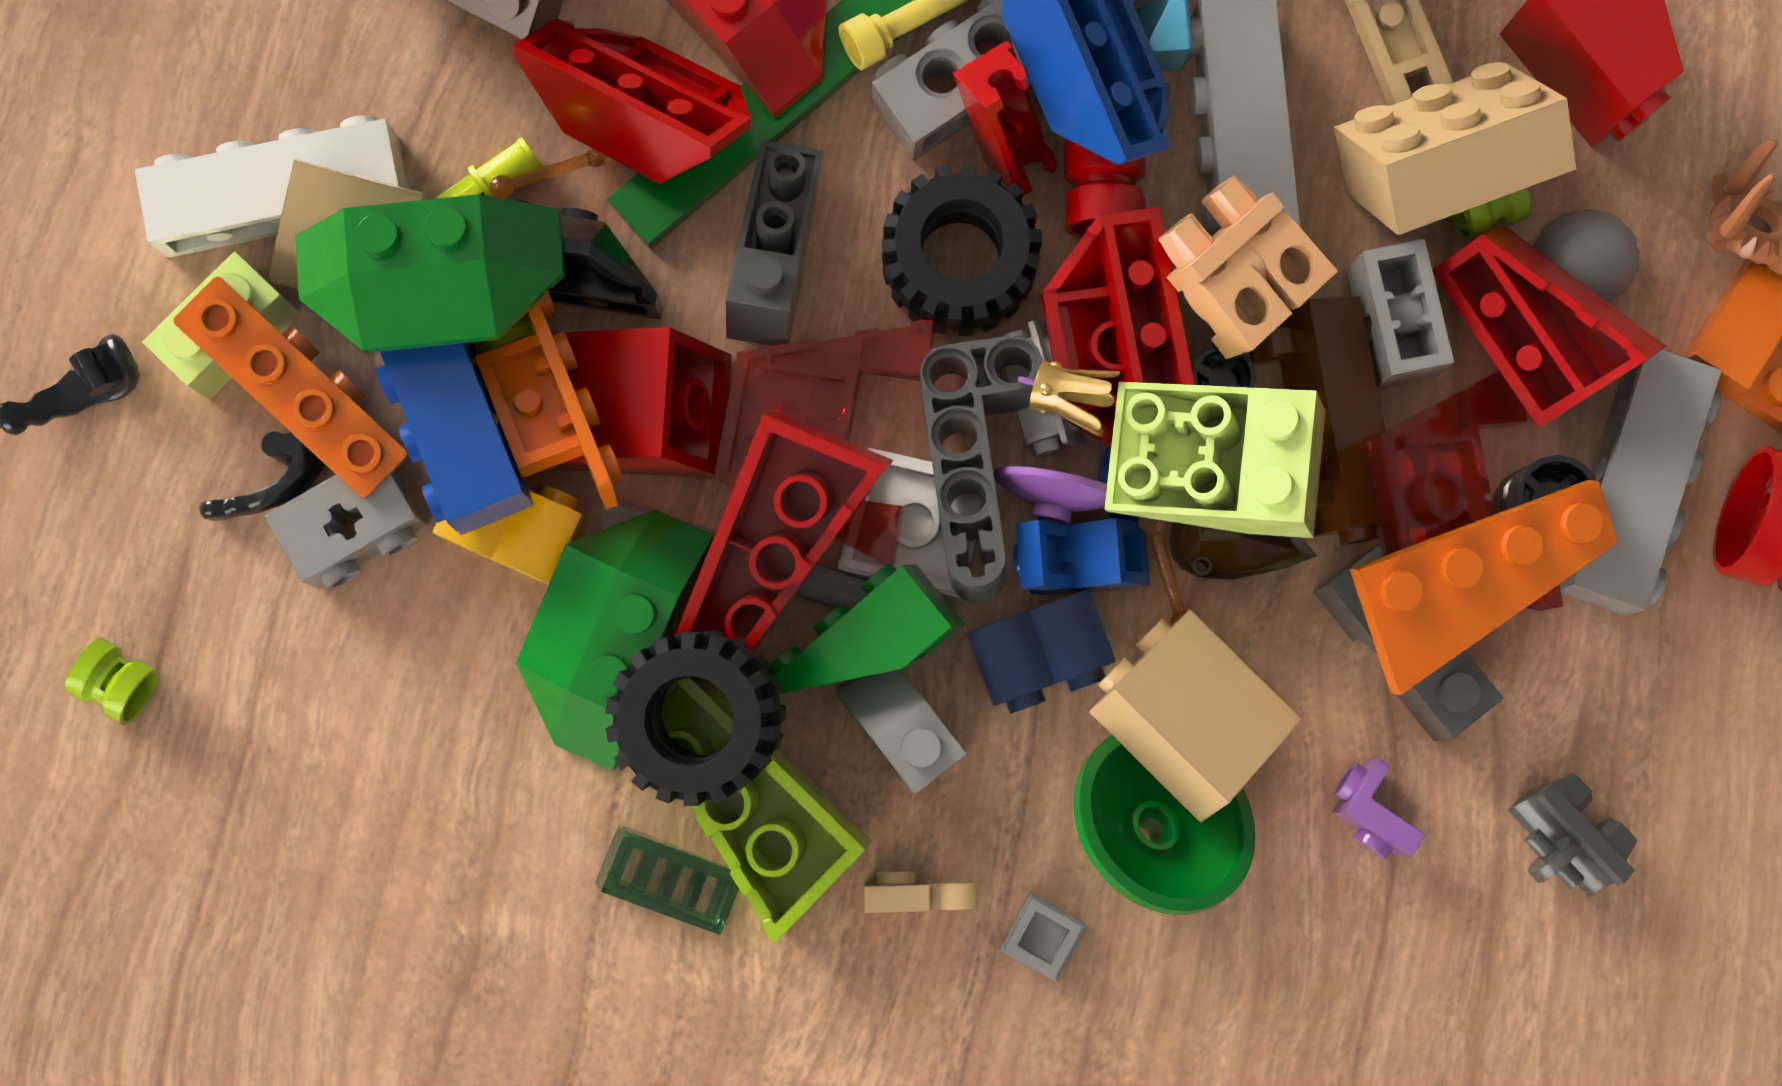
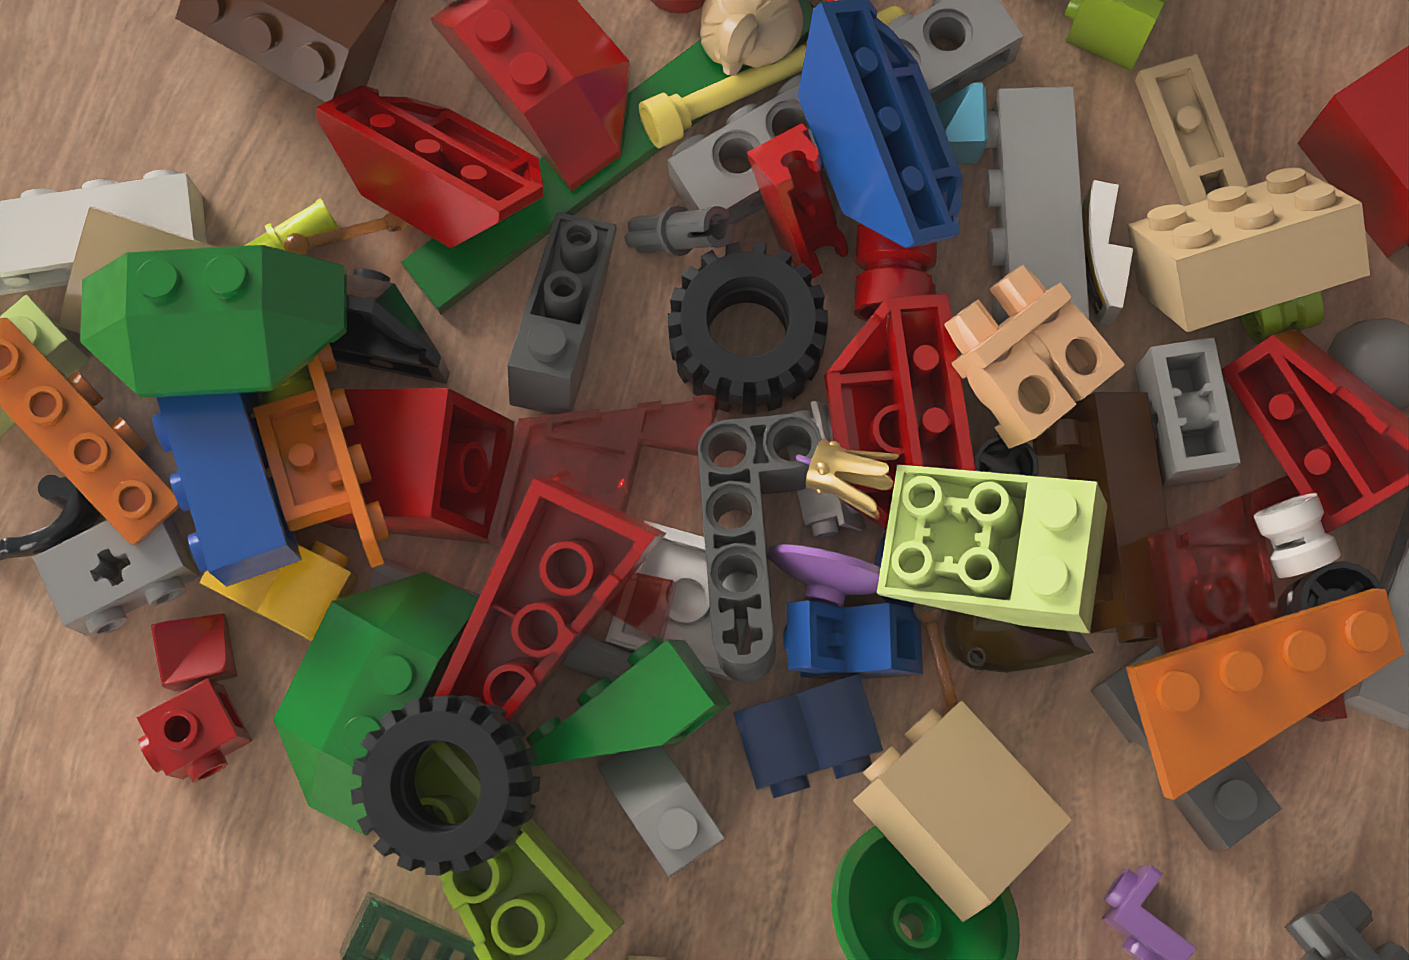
camera: 10 degrees right, 5 degrees down
(430, 599) = (193, 651): none -> red slope
(436, 680) = (192, 732): none -> red brick
(887, 154) = (679, 230): none -> dark grey axle
(1314, 167) = (1105, 263): none -> white slope
(1511, 431) = (1297, 535): none -> white wheel

